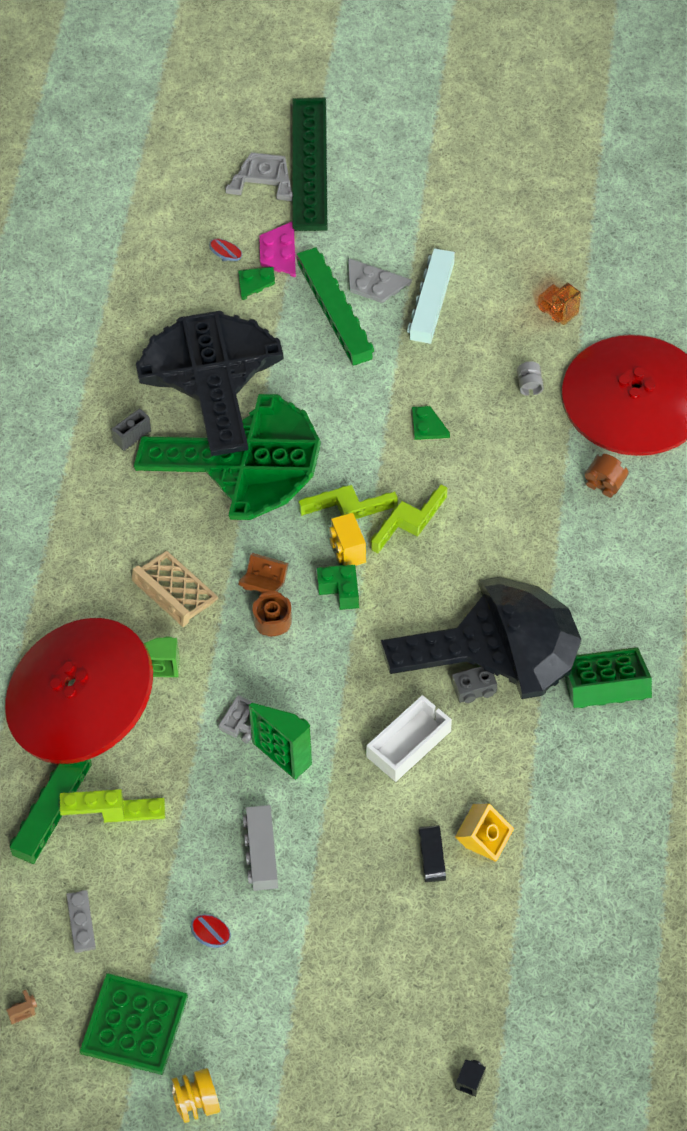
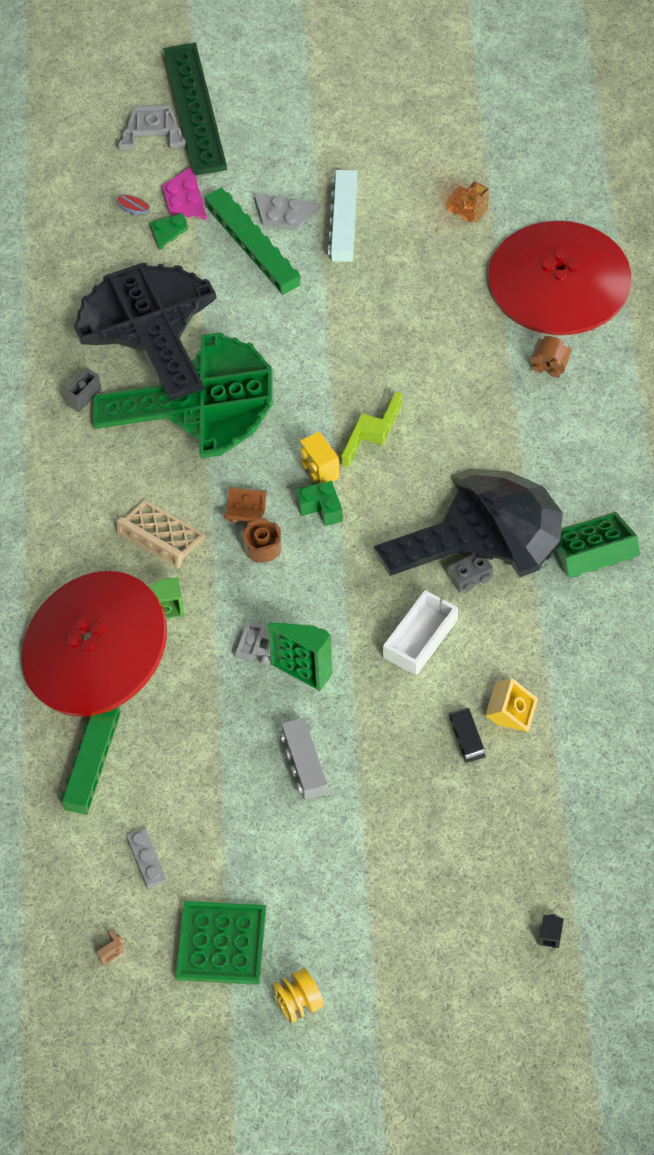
camera: 10 degrees left, 0 degrees up
(111, 806) = (151, 745): lime bracket -> none
(210, 931) = (273, 844): red piece -> none
(347, 502) = (309, 424): lime bracket -> none
(428, 424) = (368, 338): green wing -> none
(530, 378) = (456, 278): light grey wheel -> none

